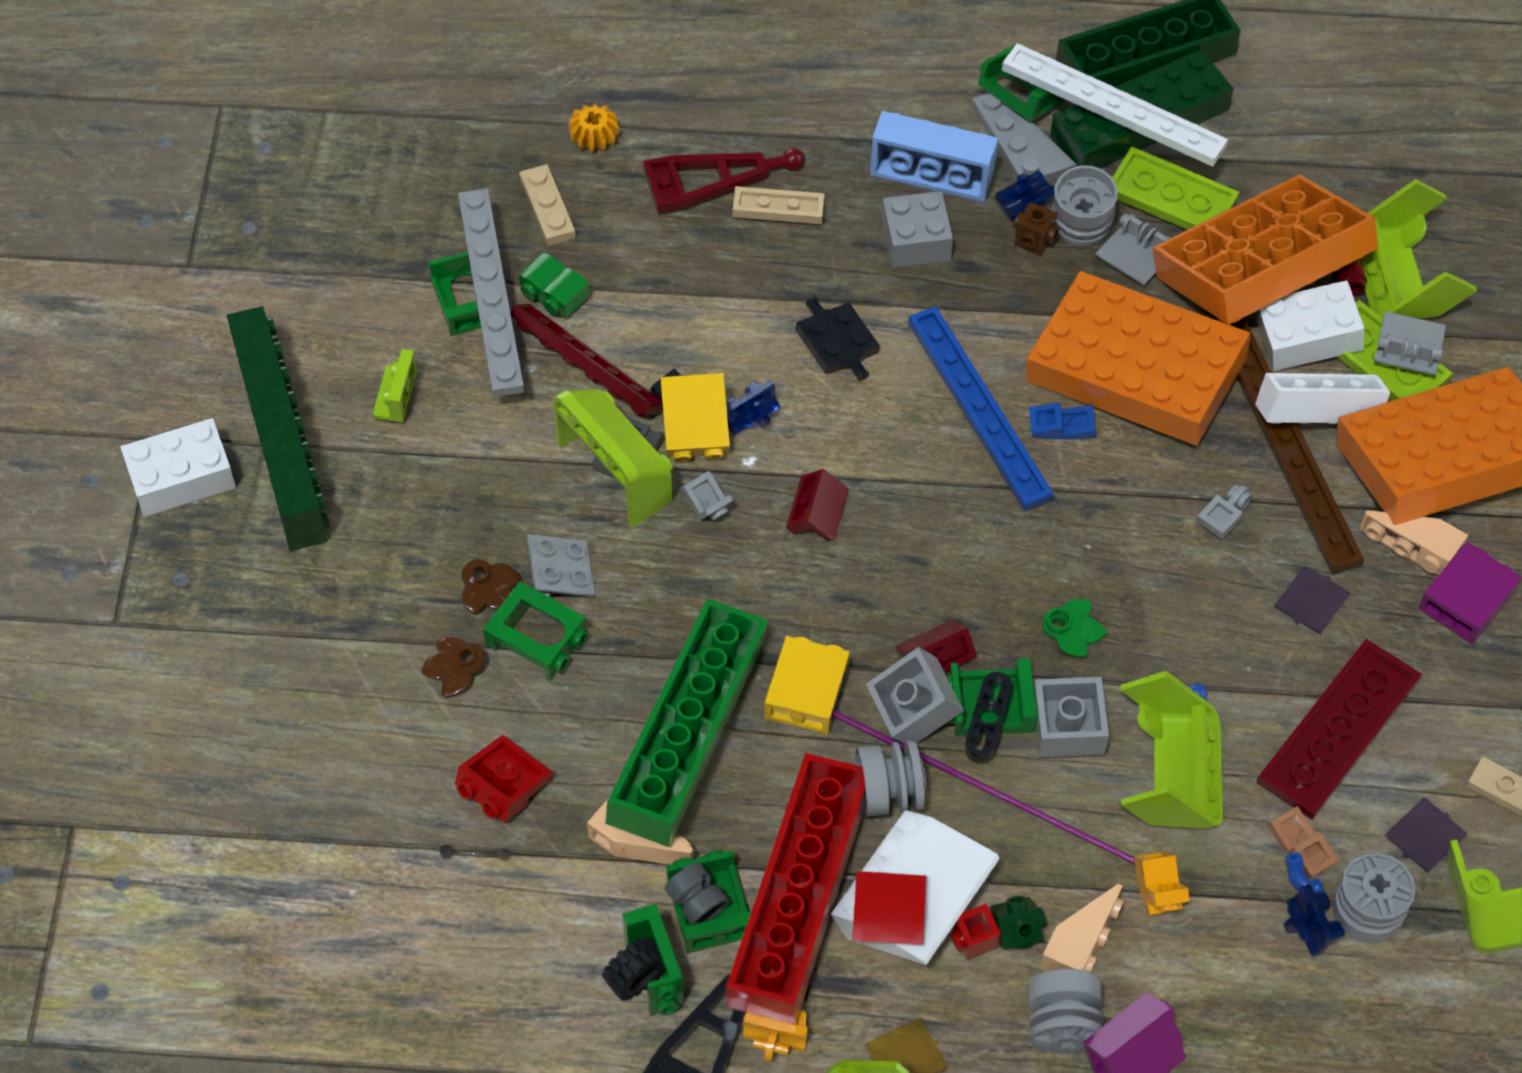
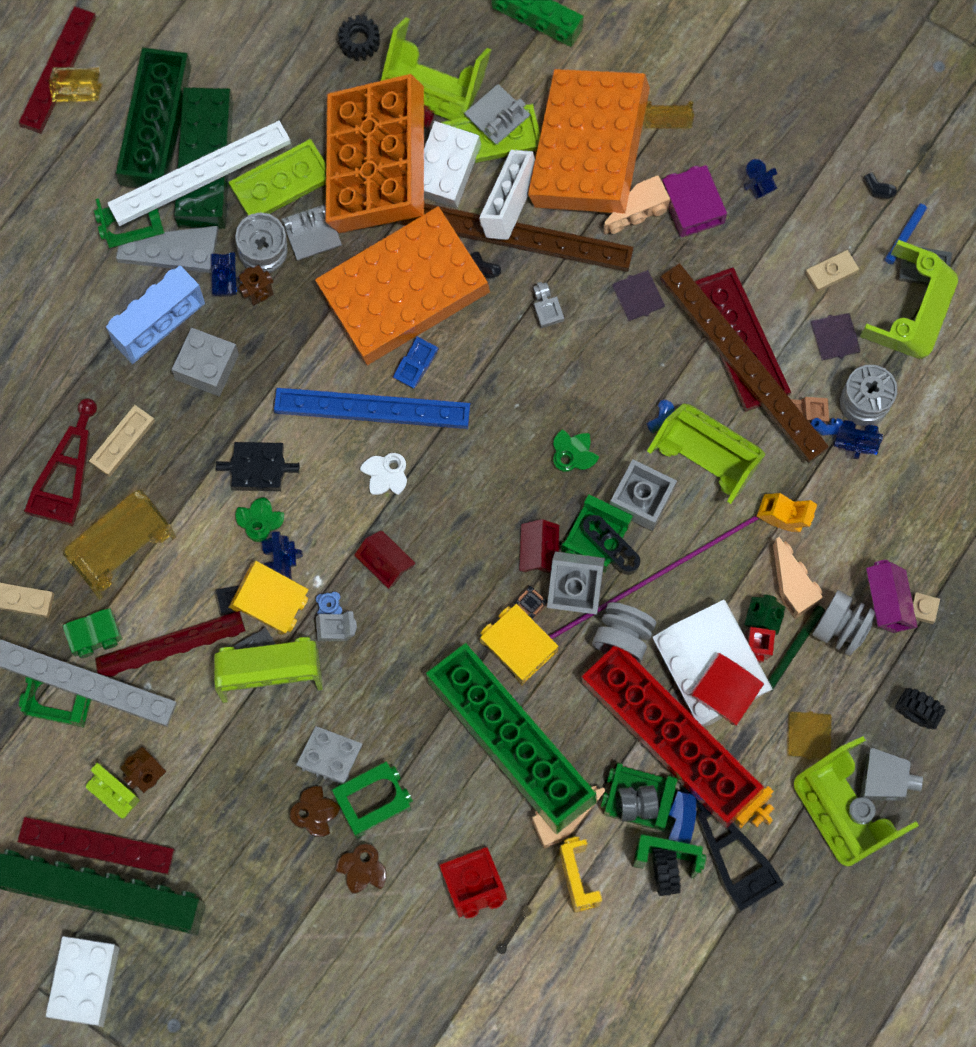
camera: 60 degrees left, 15 degrees up
(331, 411) = (96, 846): none -> dark red plate
(433, 402) = (142, 770): none -> reddish brown brick
(568, 870) = (579, 900): none -> yellow panel
(664, 235) = (115, 540): none -> clear yellow windscreen
(710, 959) = (685, 813): none -> blue slope
(733, 474) = (333, 598): none -> medium blue plate
(780, 369) = (259, 516): none -> green plate
(861, 672) = (531, 602): none -> tile
(912, 458) = (383, 476): none -> white plate
(980, 981) = (795, 646): none -> dark green bar
(1222, 429) = (488, 269): none -> black arm
(1309, 745) = (744, 363): none -> reddish brown plate
(1390, 164) = (356, 26): none -> black tyre

